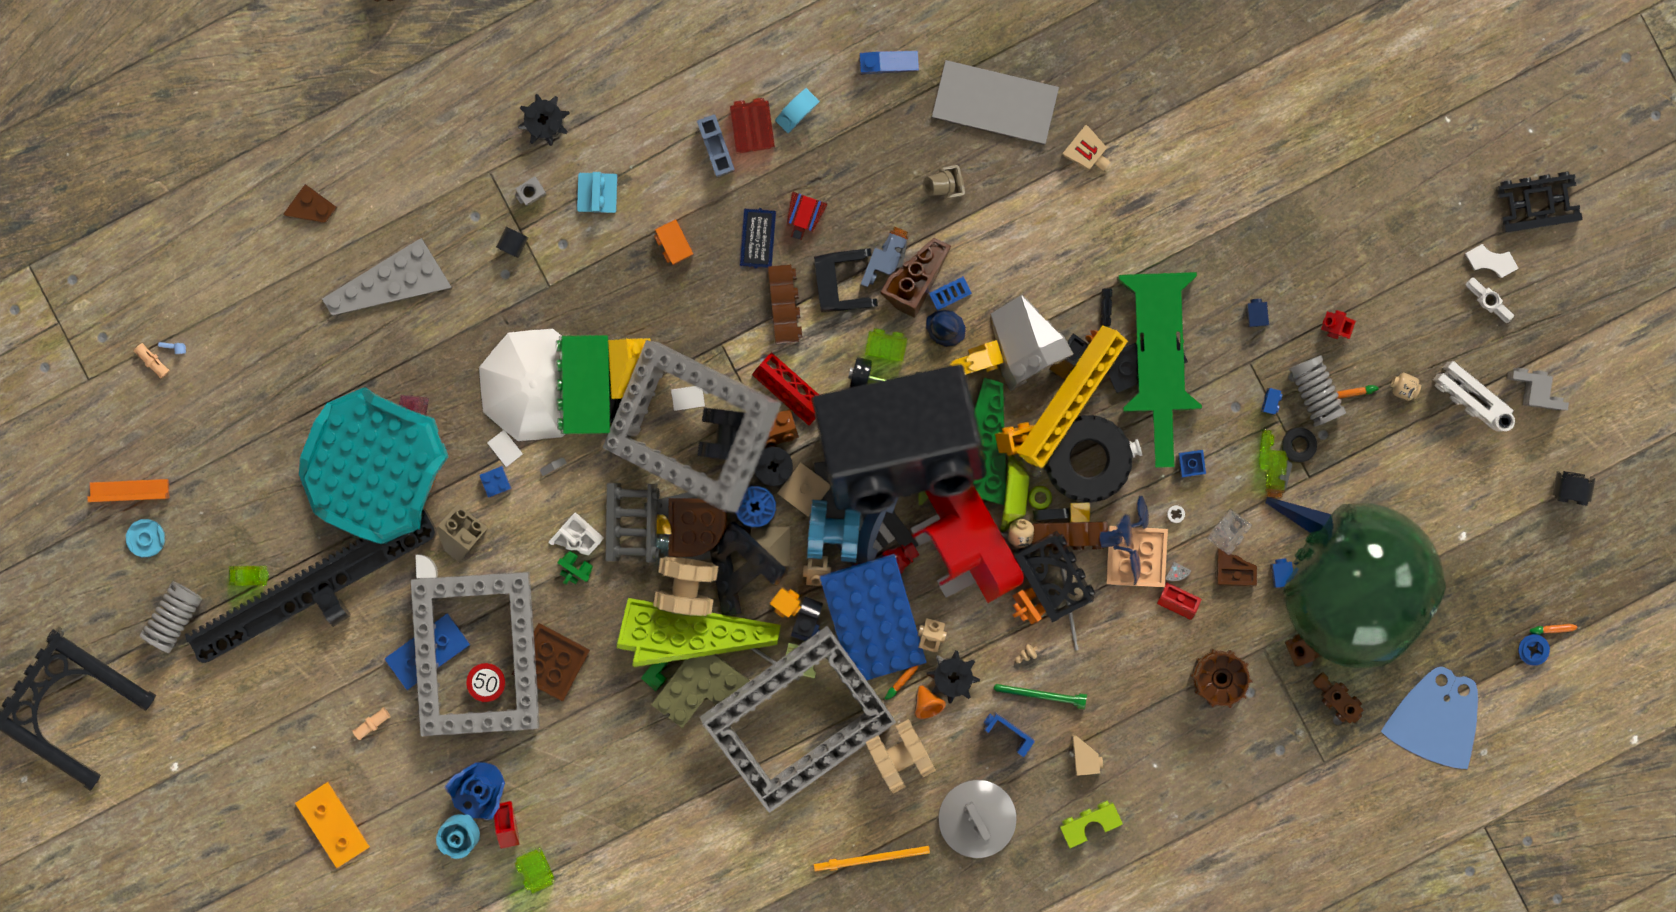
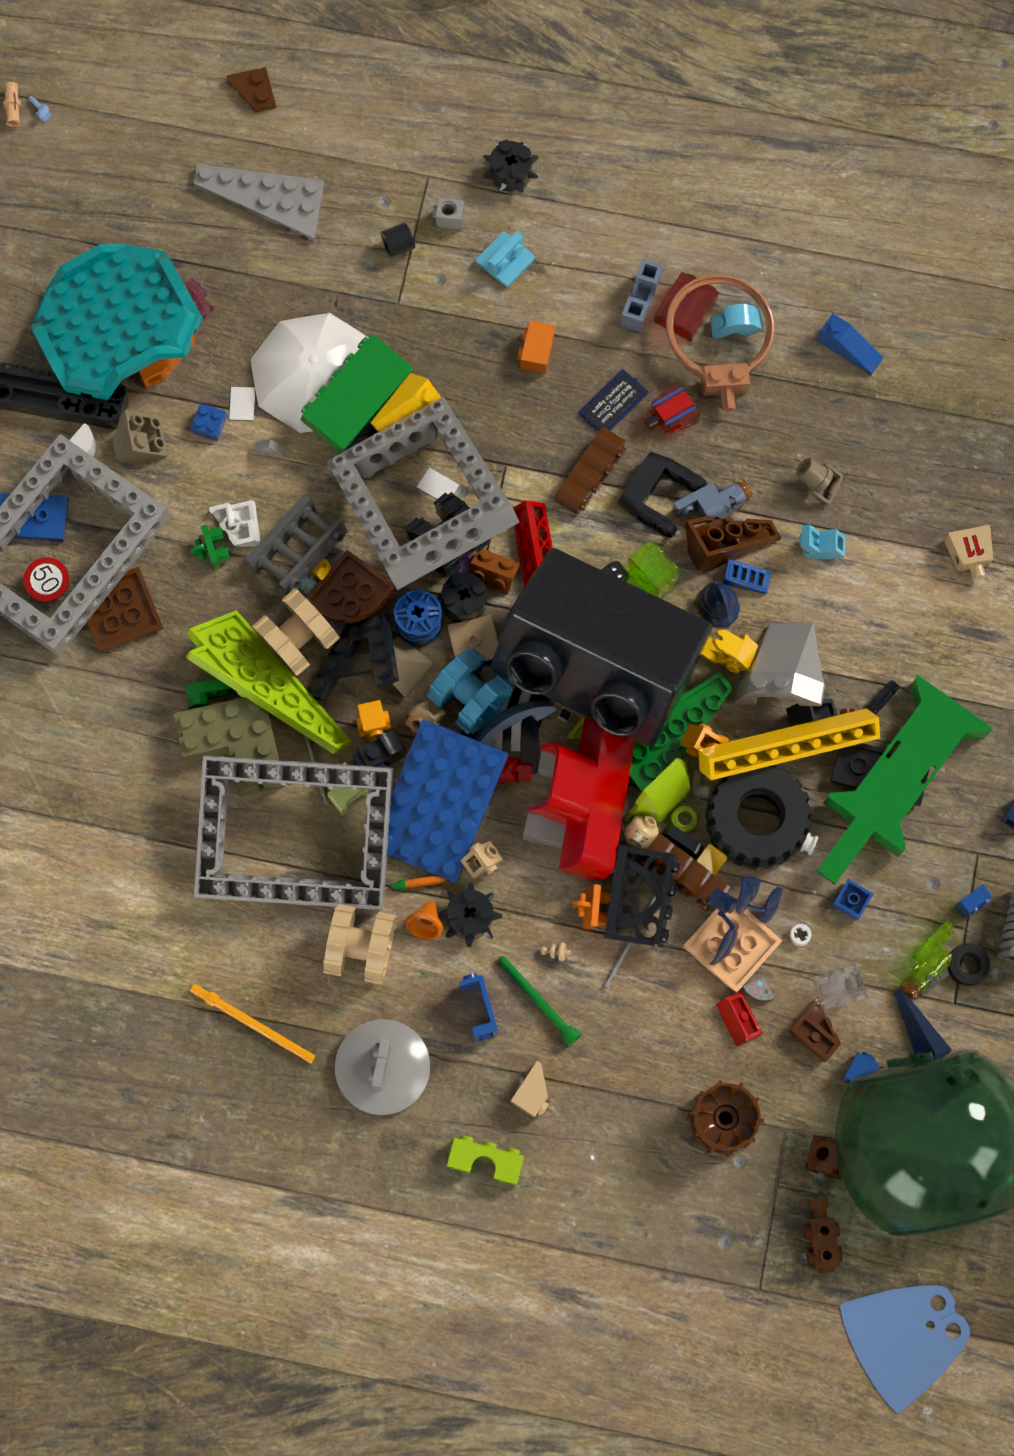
camera: 40 degrees right, 15 degrees down
(824, 160) = (727, 378): none -> nougat brick
(982, 229) = (822, 544): none -> medium azure brick
(995, 102) = (919, 450): light grey tile -> none

